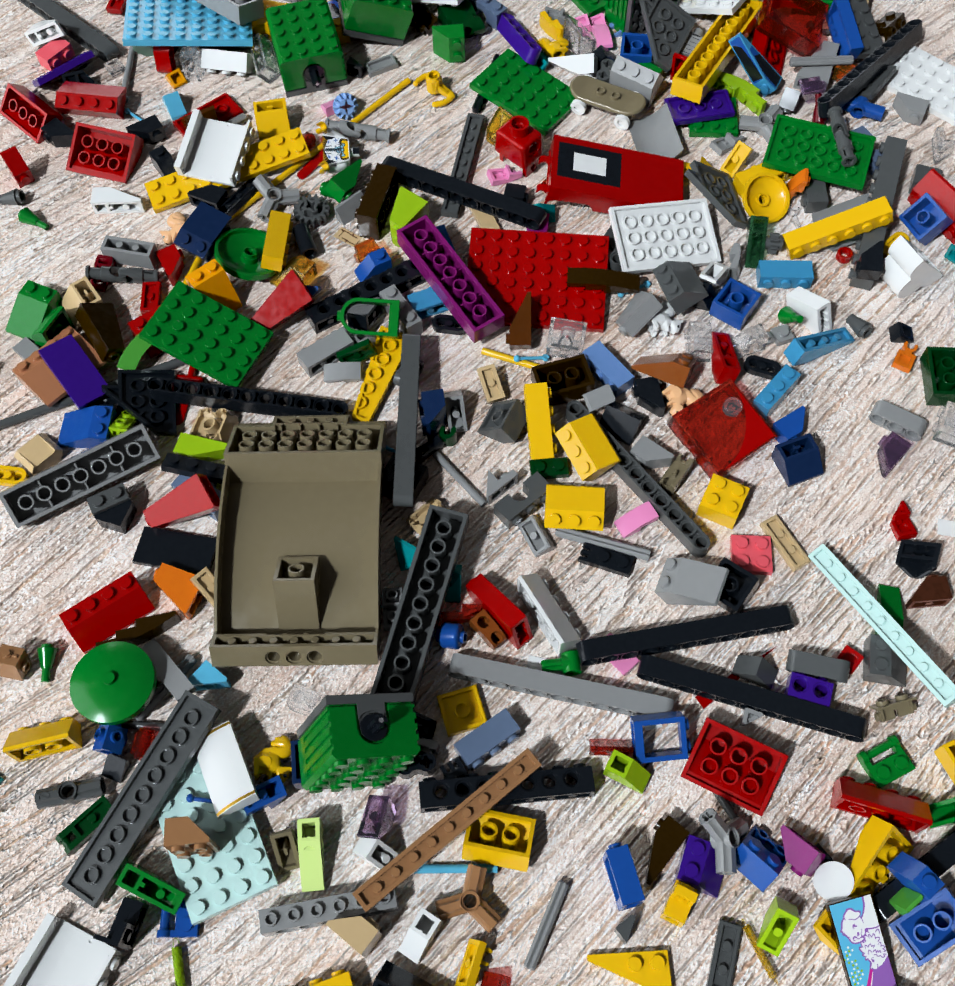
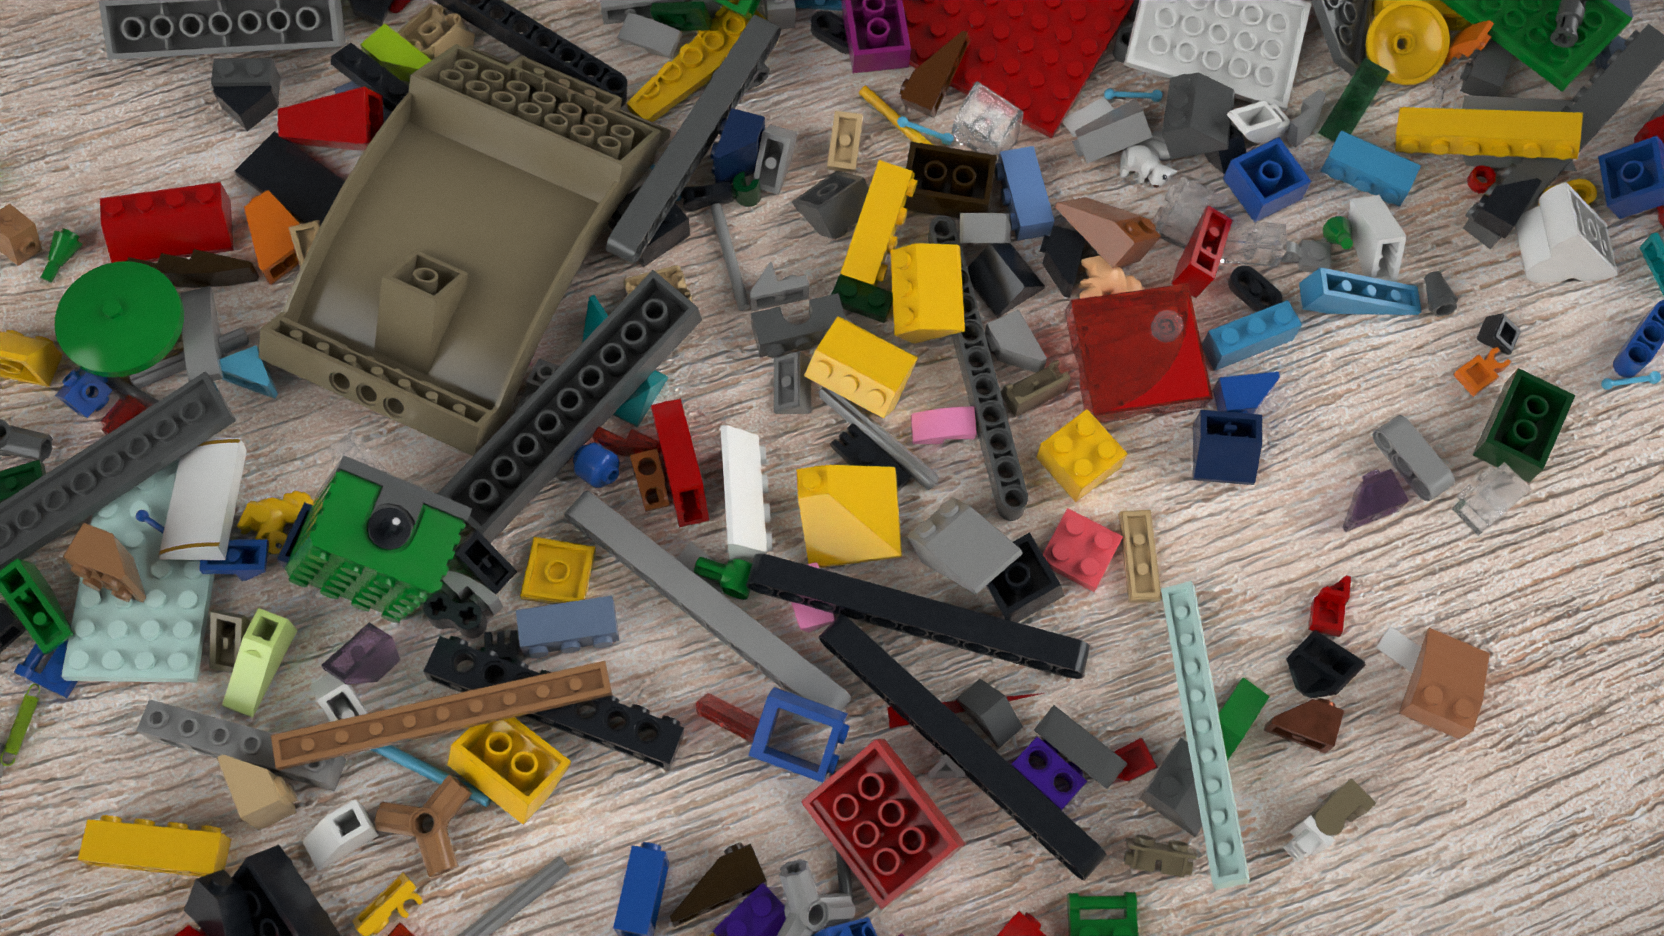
camera: 20 degrees right, 5 degrees up
(115, 768) = (74, 433): black slope -> none
(603, 279) = (1089, 60): dark brown slope -> none
(614, 595) = (849, 514): none -> yellow slope
(615, 311) = (1087, 115): none -> white sticker
(627, 771) = (729, 759): lime slope -> none
(773, 243) = (1380, 115): dark grey gear -> none

